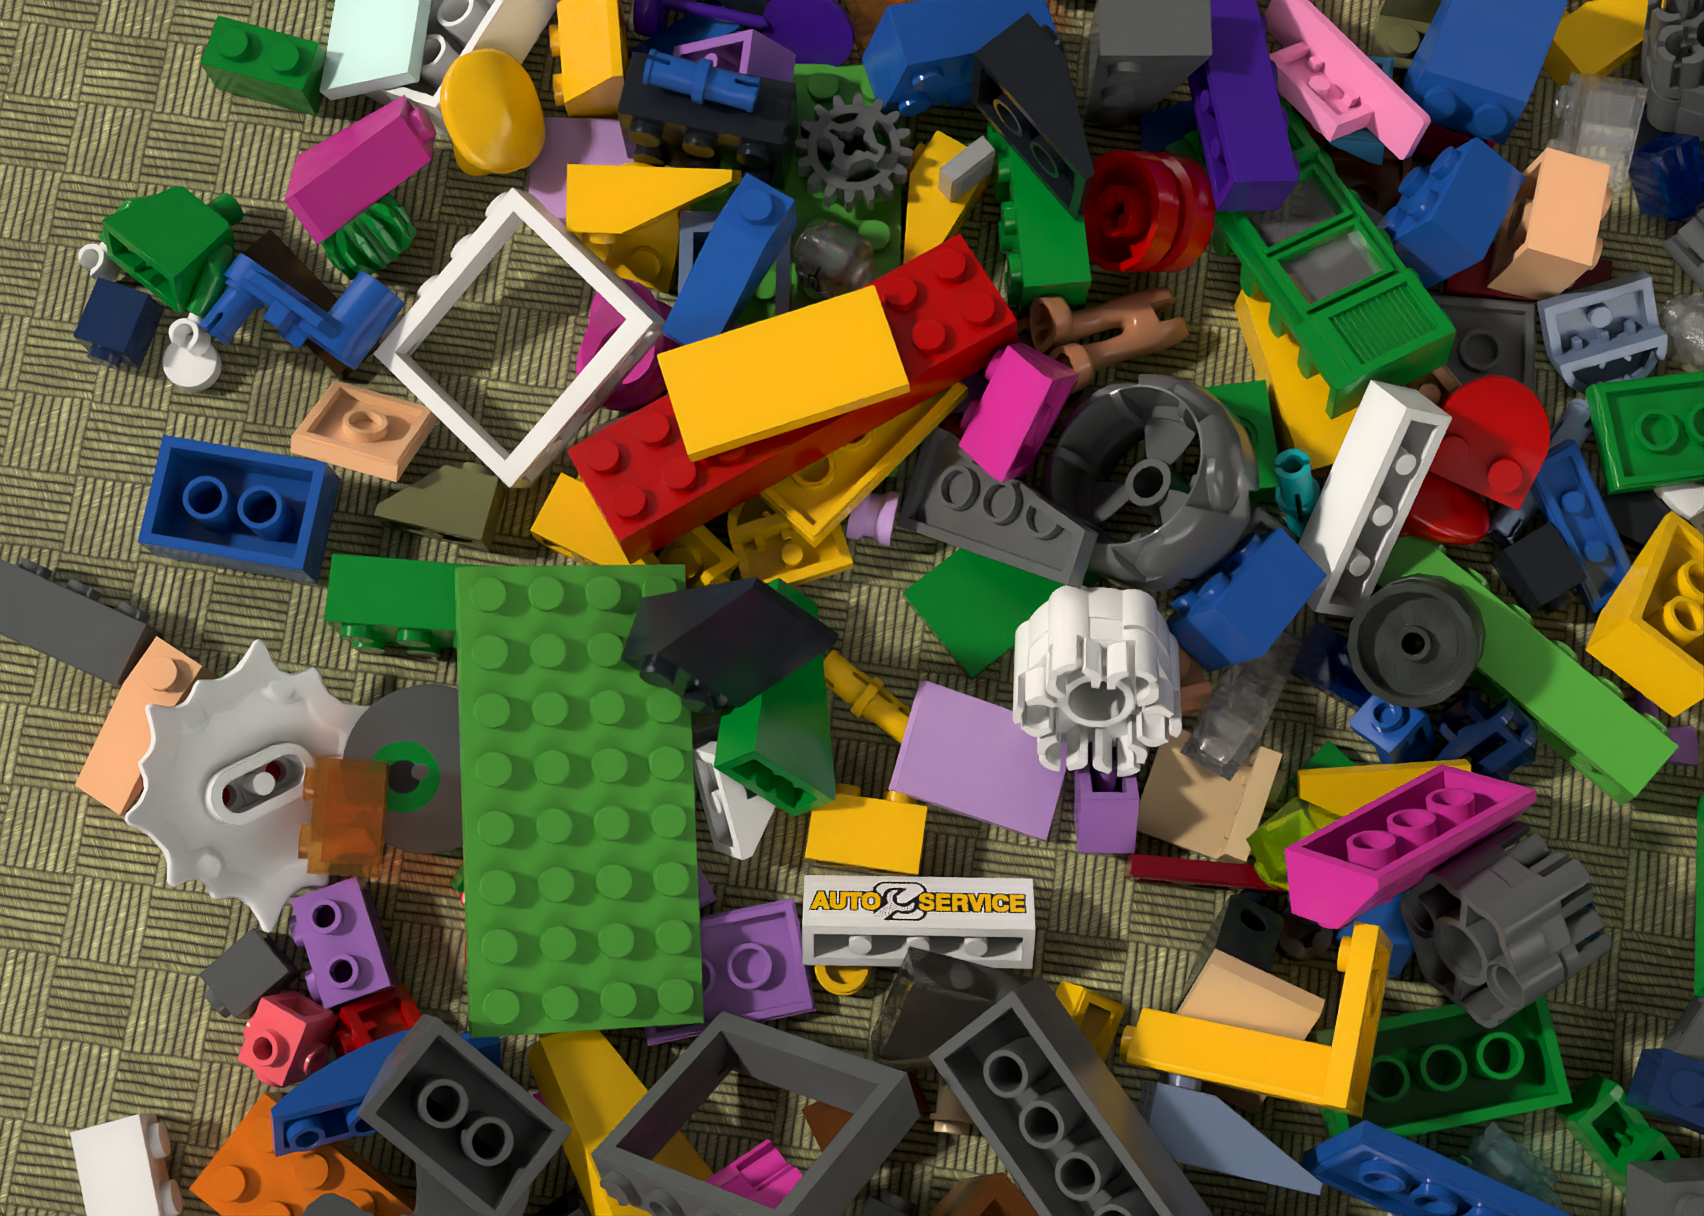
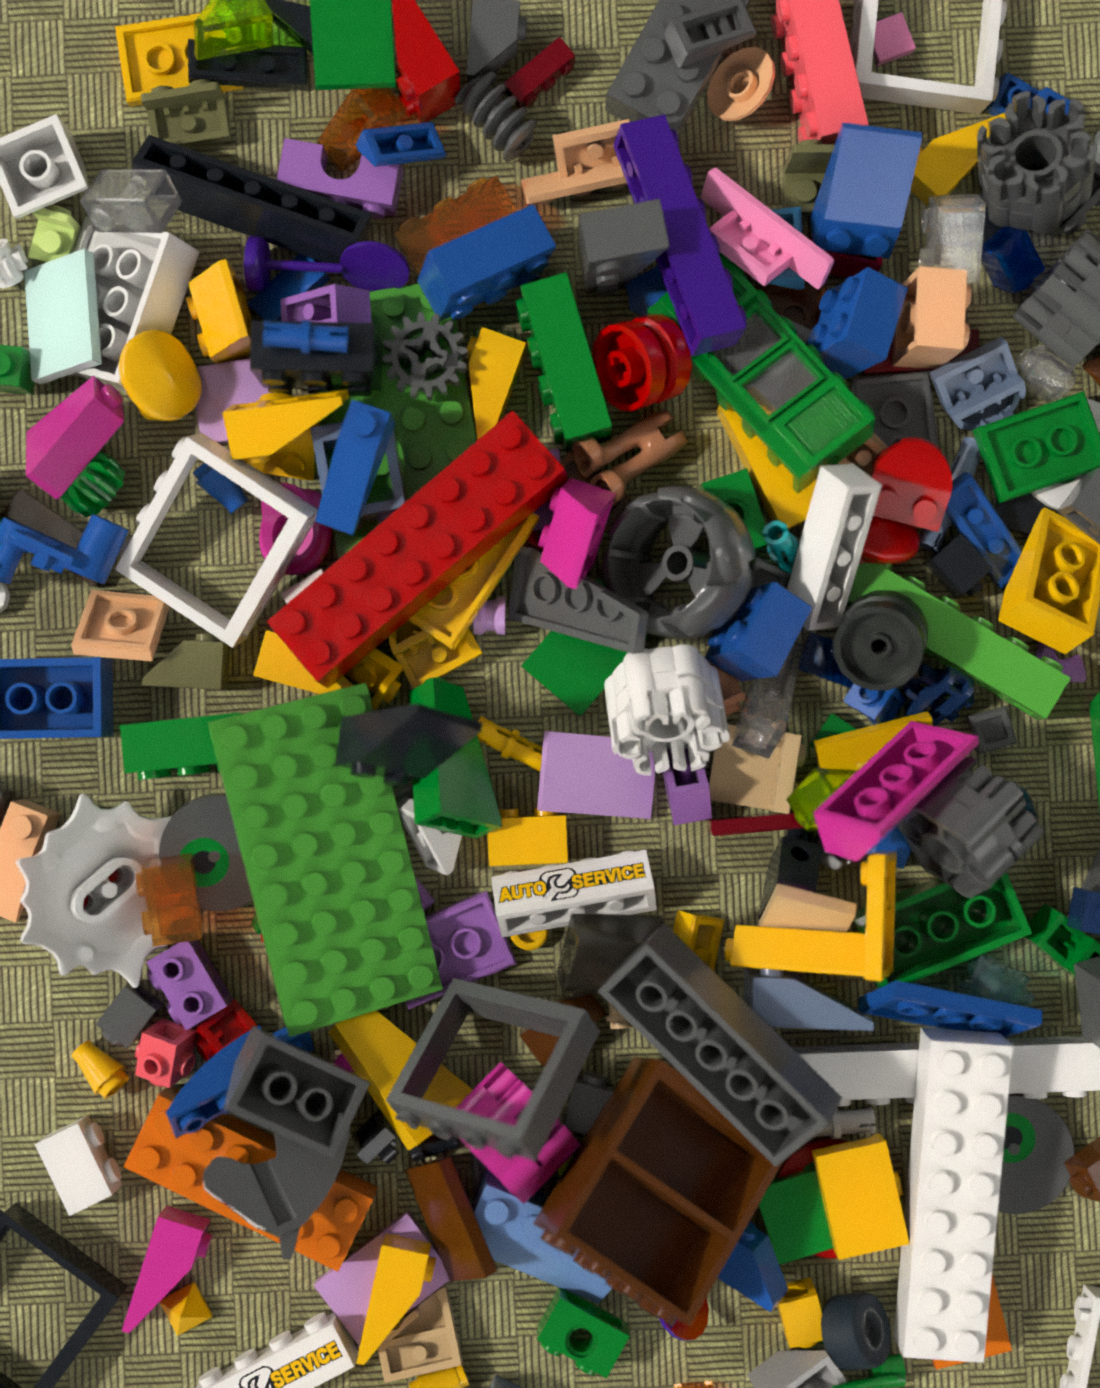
camera: 10 degrees left, 10 degrees up
(189, 1048) = (100, 1070): none -> yellow cone
(541, 273) = (220, 487): none -> blue cone
(783, 373) = (407, 541): yellow tile -> none
(833, 259) = (427, 441): clear head -> none
(966, 169) = (508, 356): light grey tile -> none
(1030, 101) = (543, 303): black slope -> none
(1557, 809) = (992, 728): none -> dark grey tile

